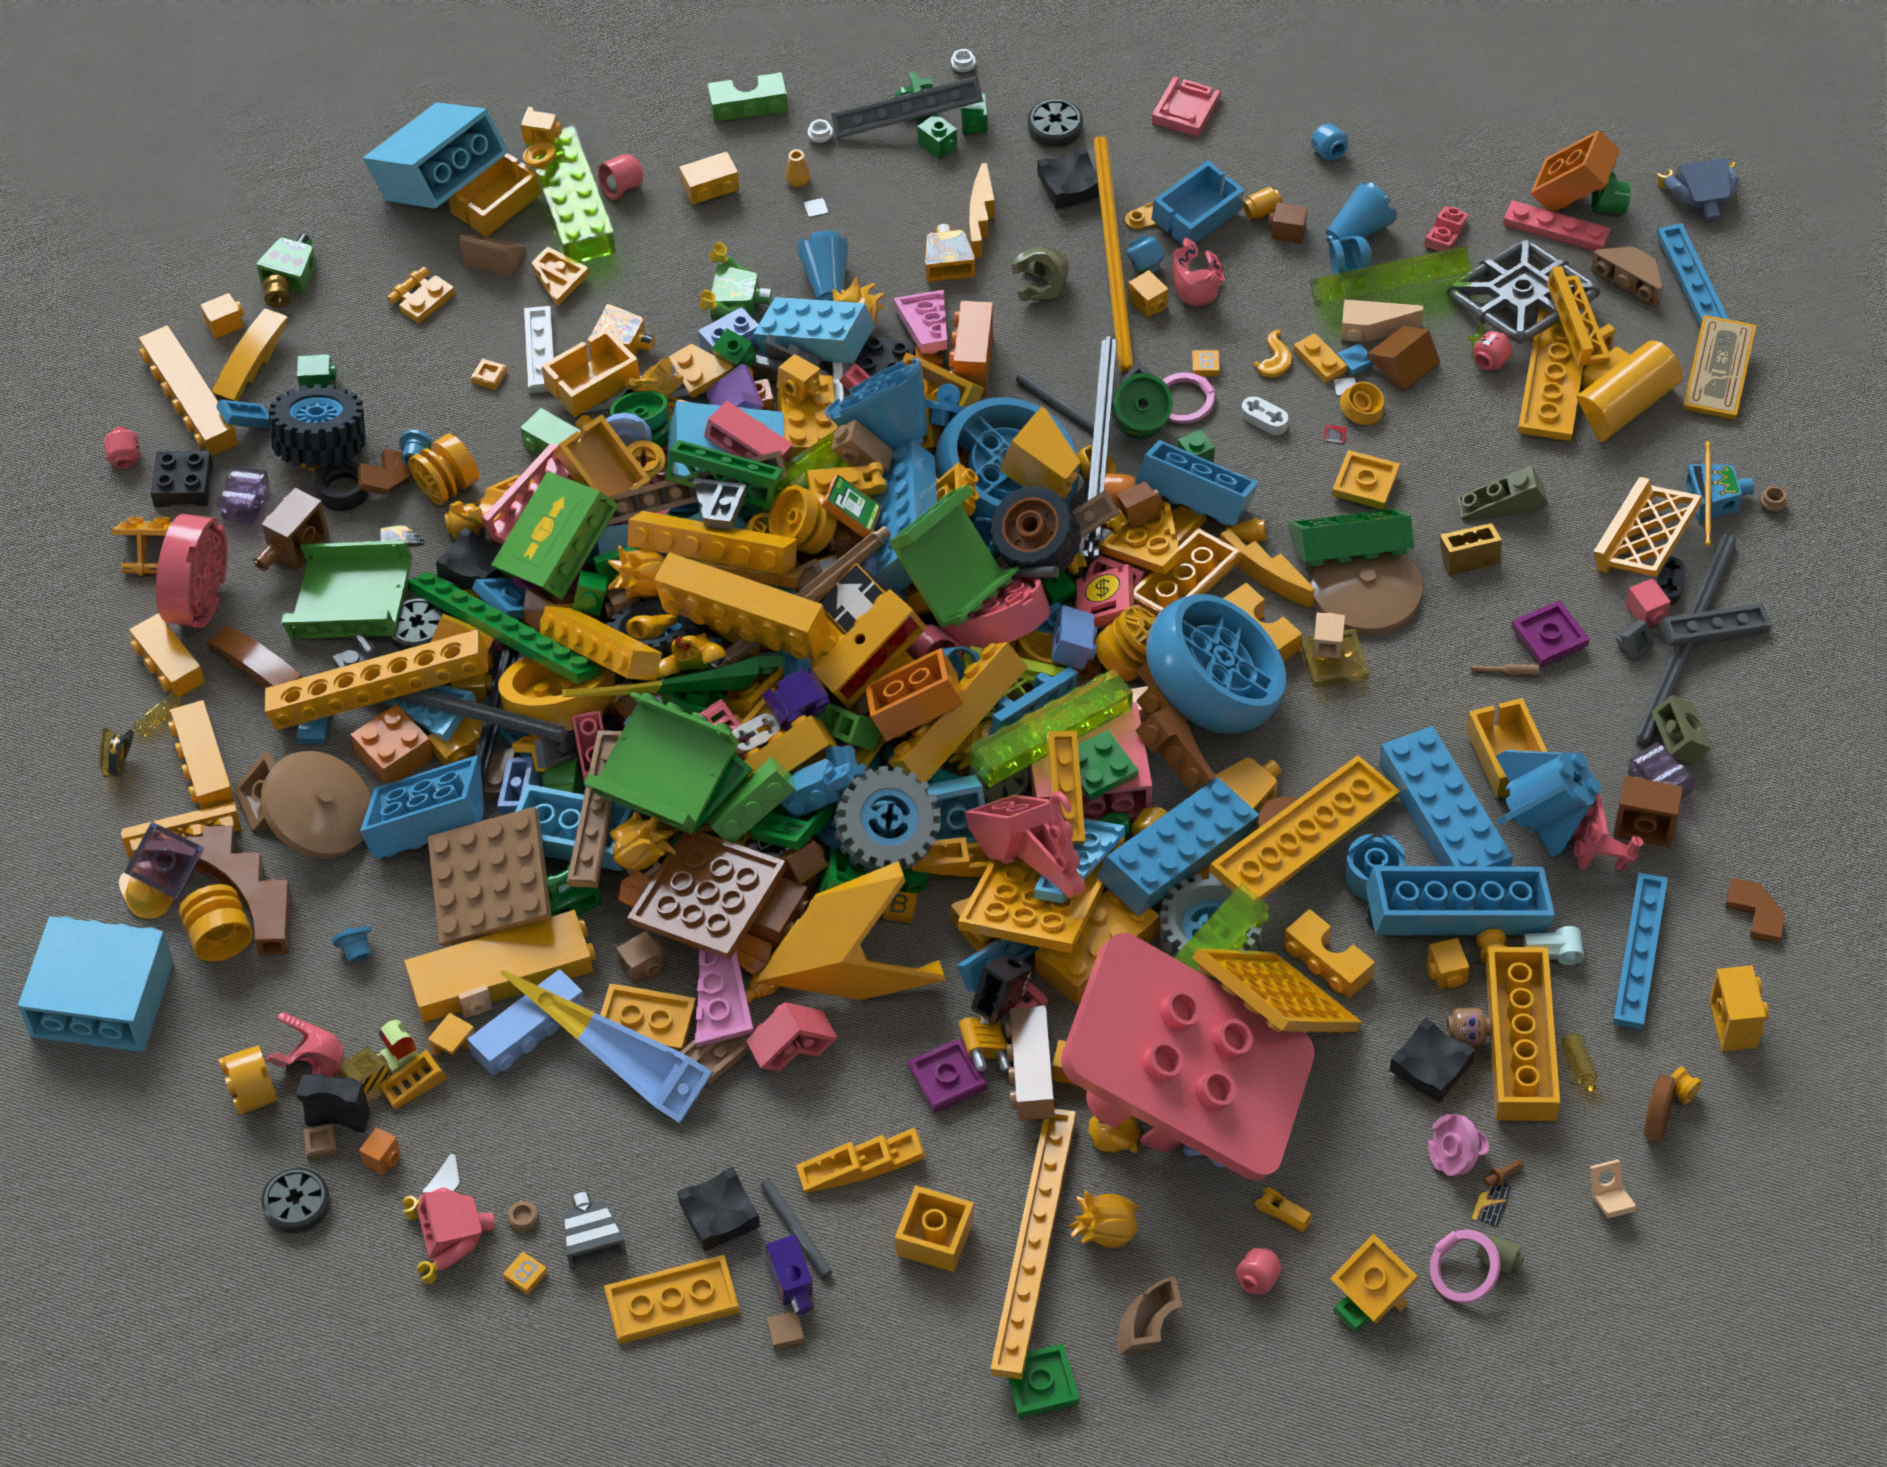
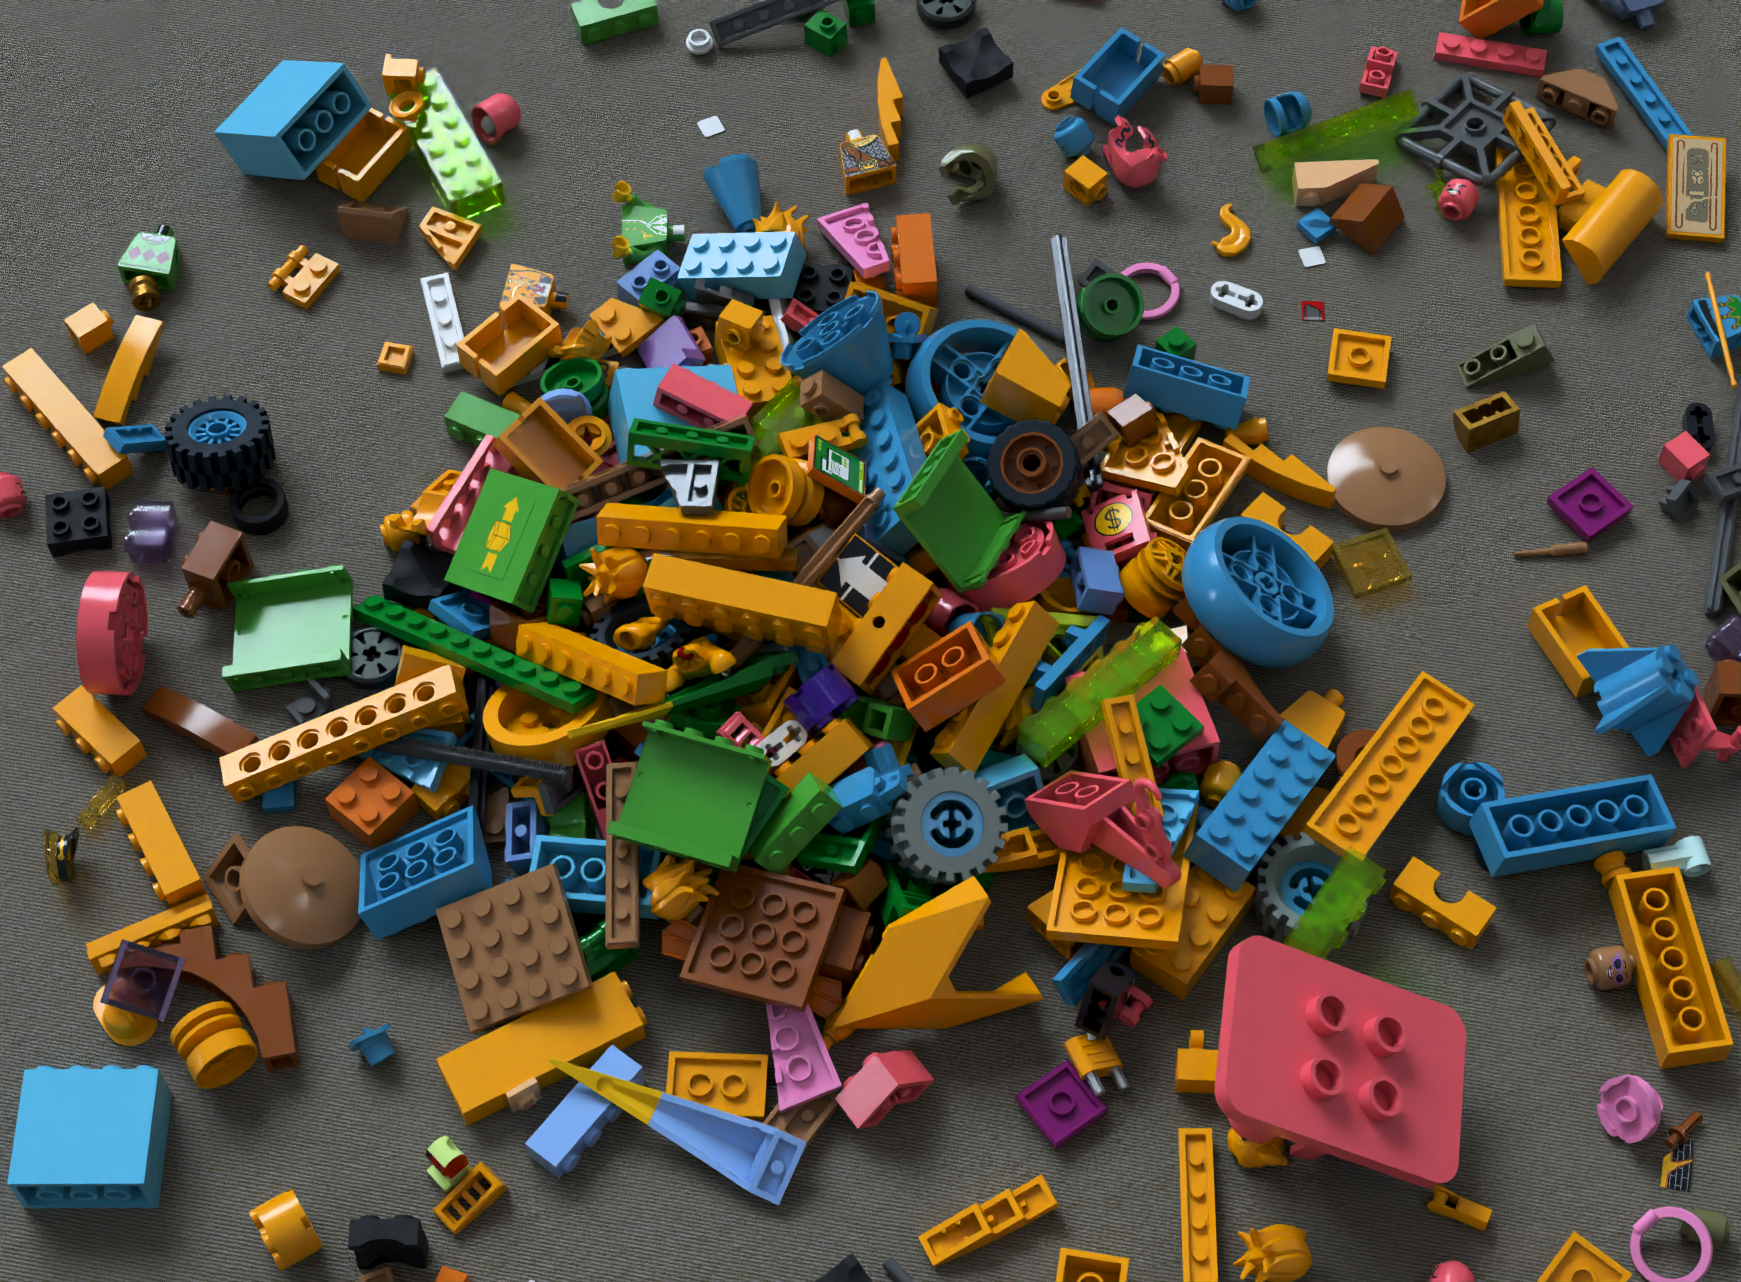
camera: 10 degrees left, 5 degrees up
(141, 528) = (38, 585): light orange plate -> none
(316, 370) = (205, 380): brick -> none
(318, 1047) = (356, 1178): coral piece -> none
(366, 1067) = (415, 1185): clear yellow brick -> none
(383, 479) = (312, 485): dark orange tile -> none
(400, 533) = (331, 555): sticker -> none
(413, 442) = (333, 454): dark azure piece -> none
(444, 469) = (369, 475): light orange wheel -> none
(450, 1035) = (505, 1140): light orange panel -> none
(640, 957) = (697, 1014): medium nougat brick -> none
(709, 178) = (592, 108): brick -> none
(797, 170) = (684, 87): light orange cone -> none
(1031, 1063) = (1153, 1079): brick -> none
(1113, 254) = (1040, 140): light orange axle -> none
(1205, 362) = (1161, 249): light orange tile -> none
(1276, 991) = (1409, 964): light orange plate -> none
(1320, 358) = (1279, 229): light orange plate -> none
(1328, 635) = (1363, 540): light nougat brick -> none
(1352, 536) = (1362, 423): green slope -> none
(1362, 214) = (1291, 66): dark azure cone -> none
(1363, 403) = (1336, 273): light orange hat -> none
(1432, 1060) = (1580, 1011): black brick -> none
(1442, 802) = (1526, 716): dark azure brick -> none
(1447, 964) = (1571, 897): light orange brick -> none
(1628, 523) = (1643, 367): light orange fence -> none

